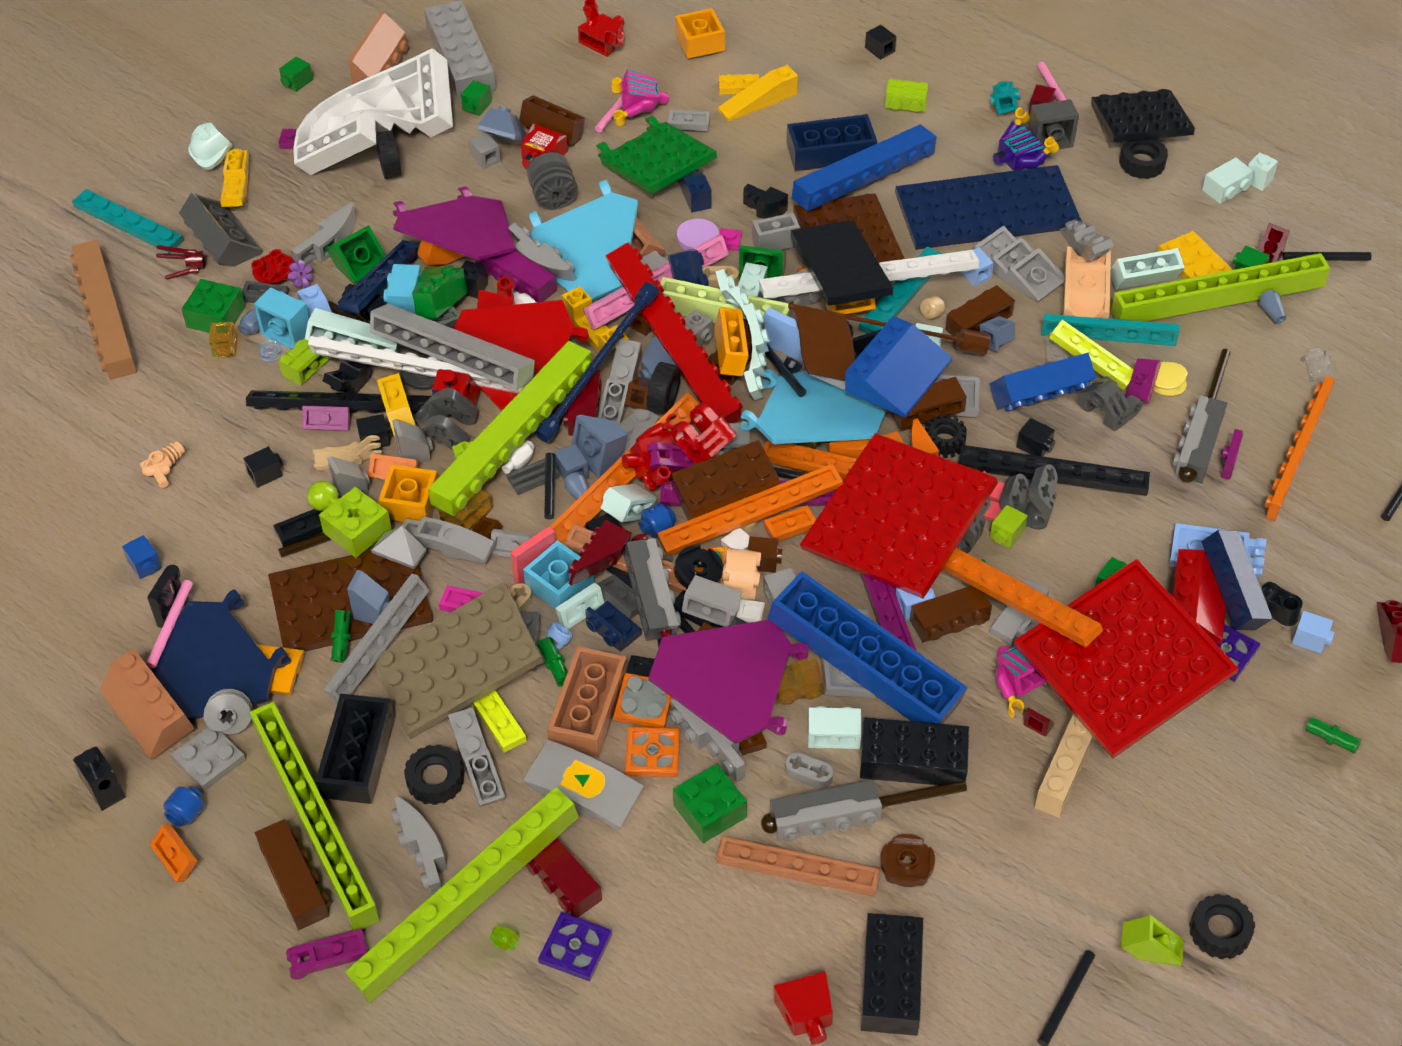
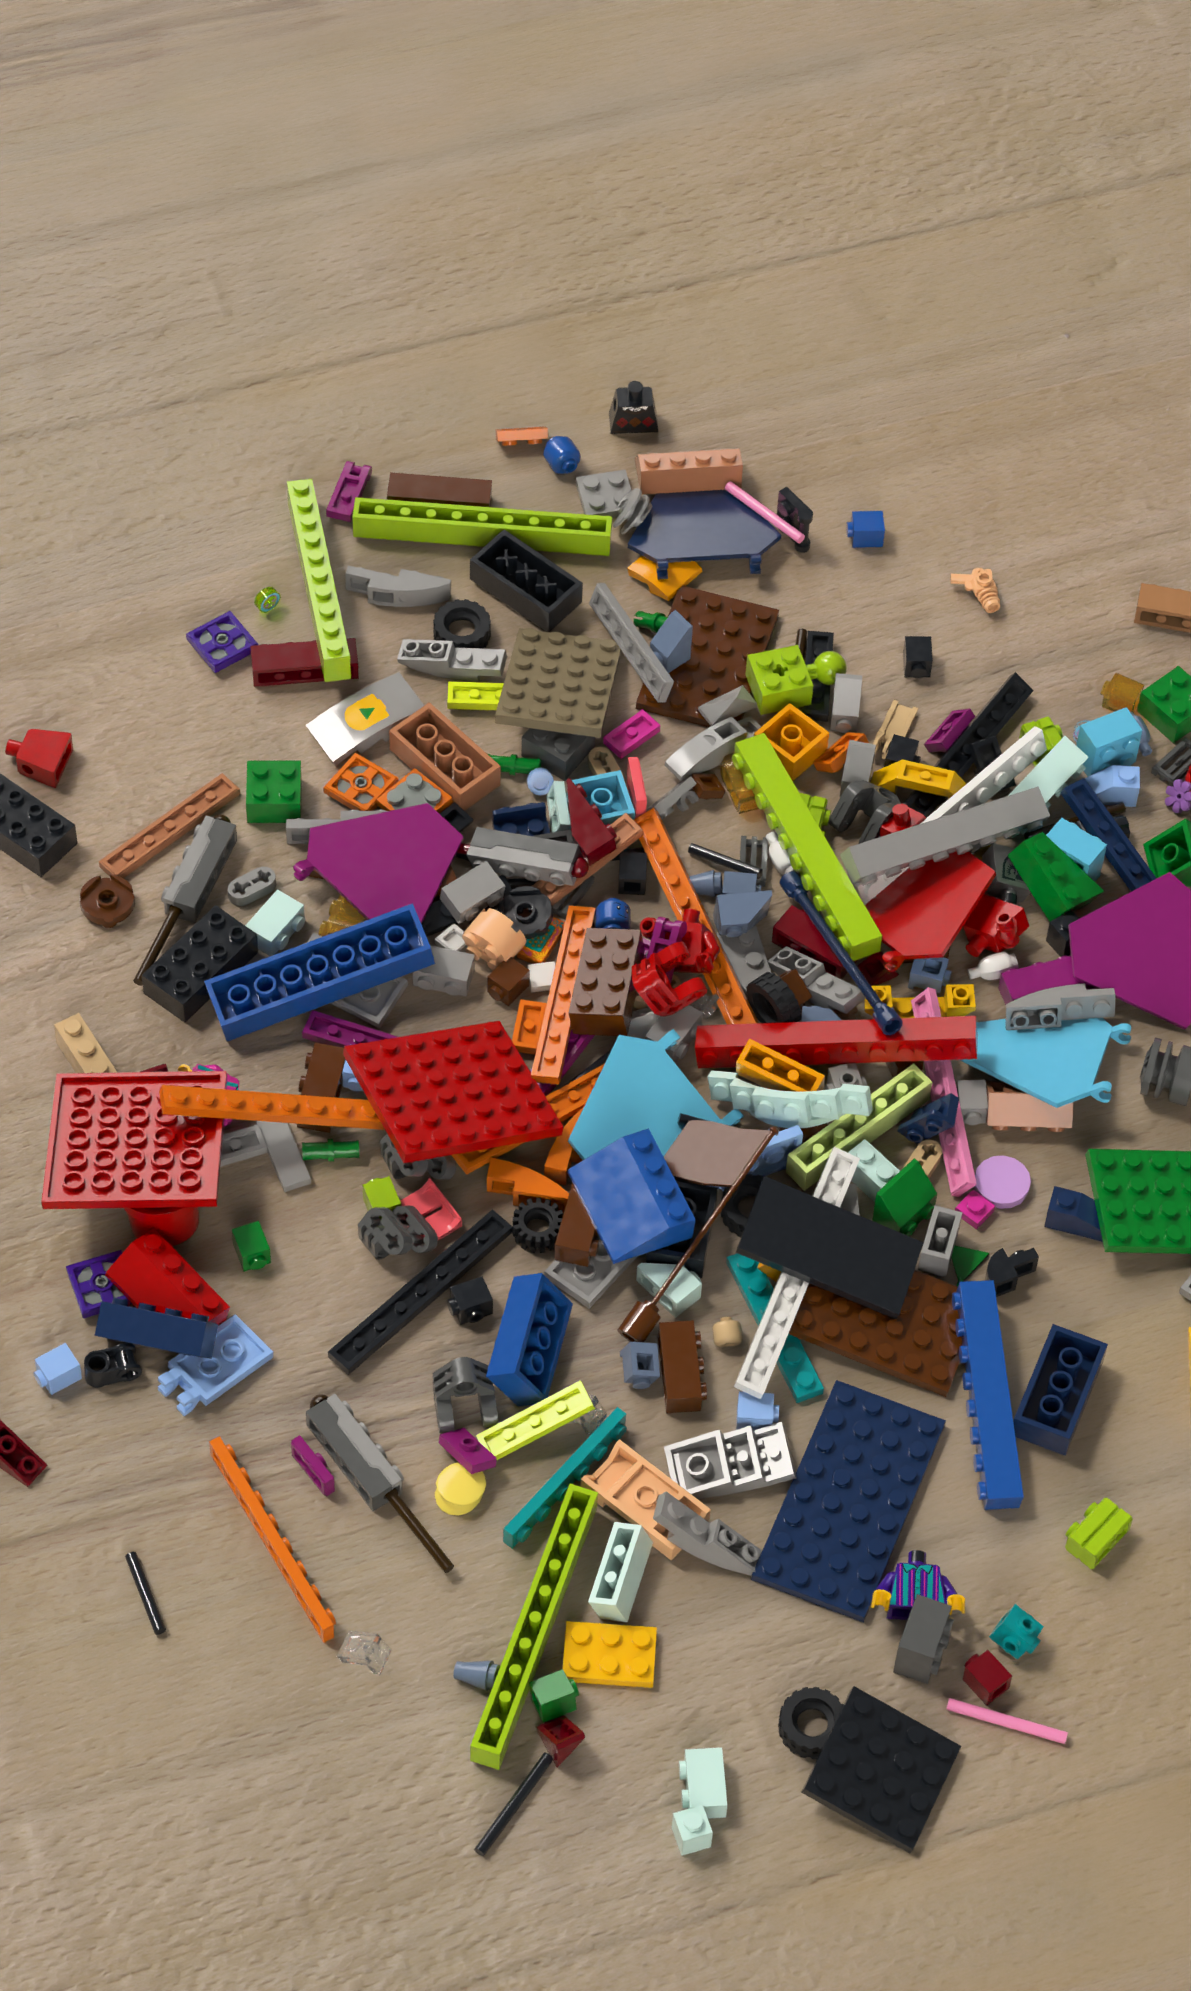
camera: 120 degrees right, 5 degrees up
(627, 502) = (646, 895): light aqua brick -> none

